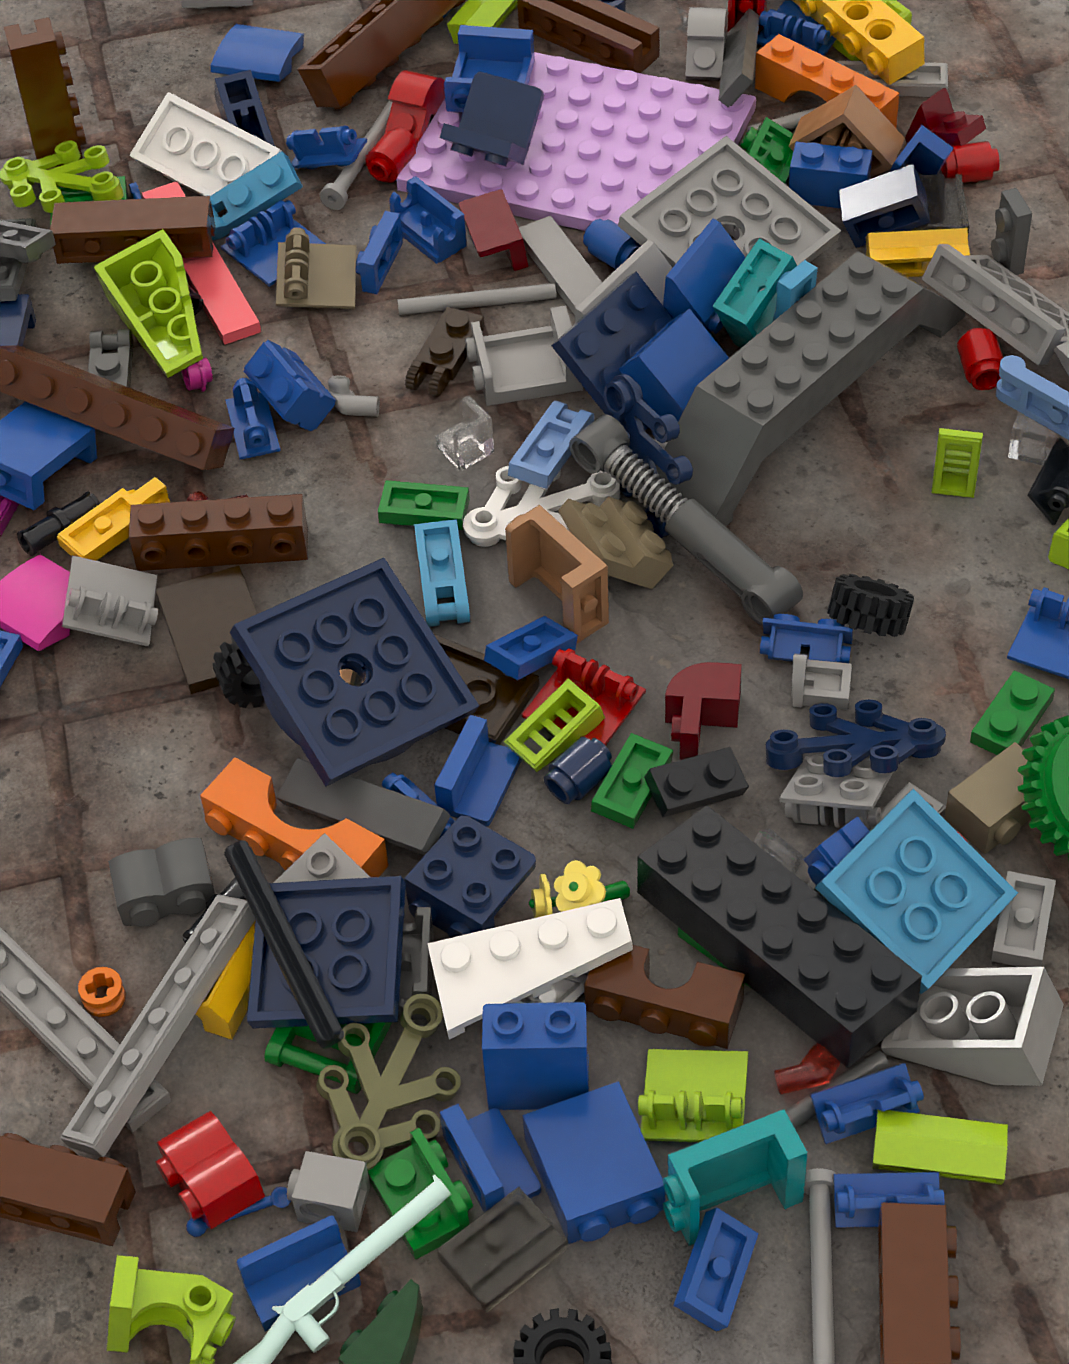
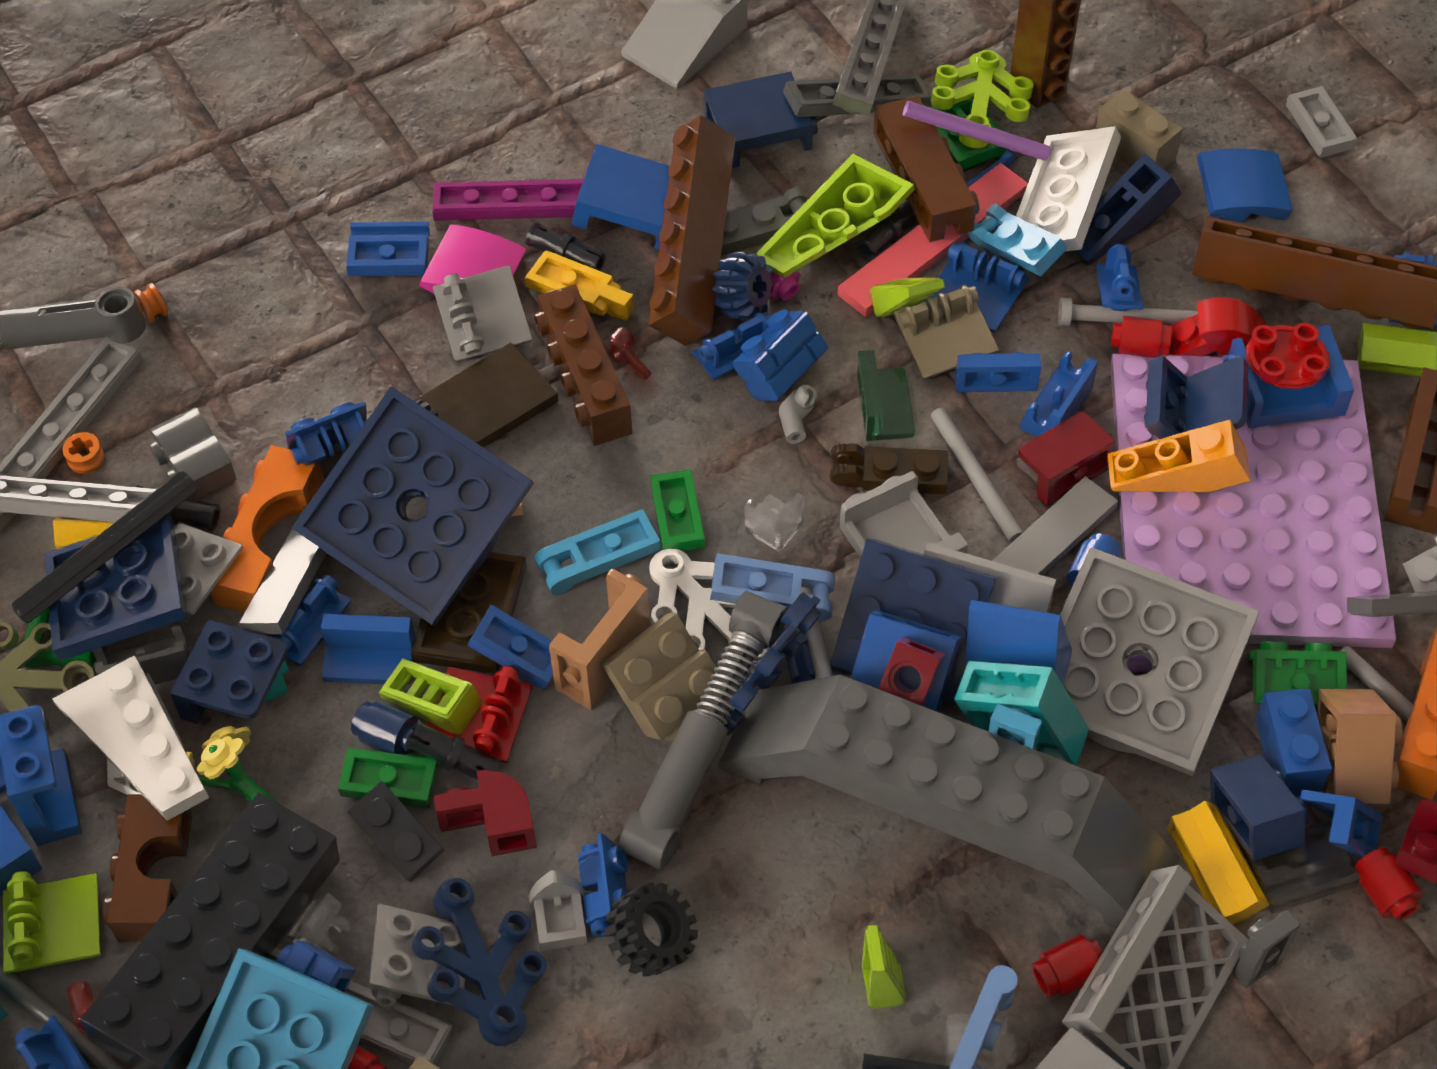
camera: 70 degrees right, 5 degrees up
(116, 179) = (976, 130): none -> medium lavender bar
(150, 87) = (1141, 130): none -> dark tan brick
(197, 387) = (743, 285): none -> dark blue gear
(217, 739) = (311, 437): none -> blue hinge
(269, 280) = (902, 292): none -> lime slope
(364, 340) = (883, 400): none -> clear green panel
(481, 52) = (1288, 355): none -> red dish
(546, 152) = (1183, 462): none -> light orange slope
(631, 717) = (449, 751): none -> black pin
(694, 342) = (924, 659): none -> dark red brick

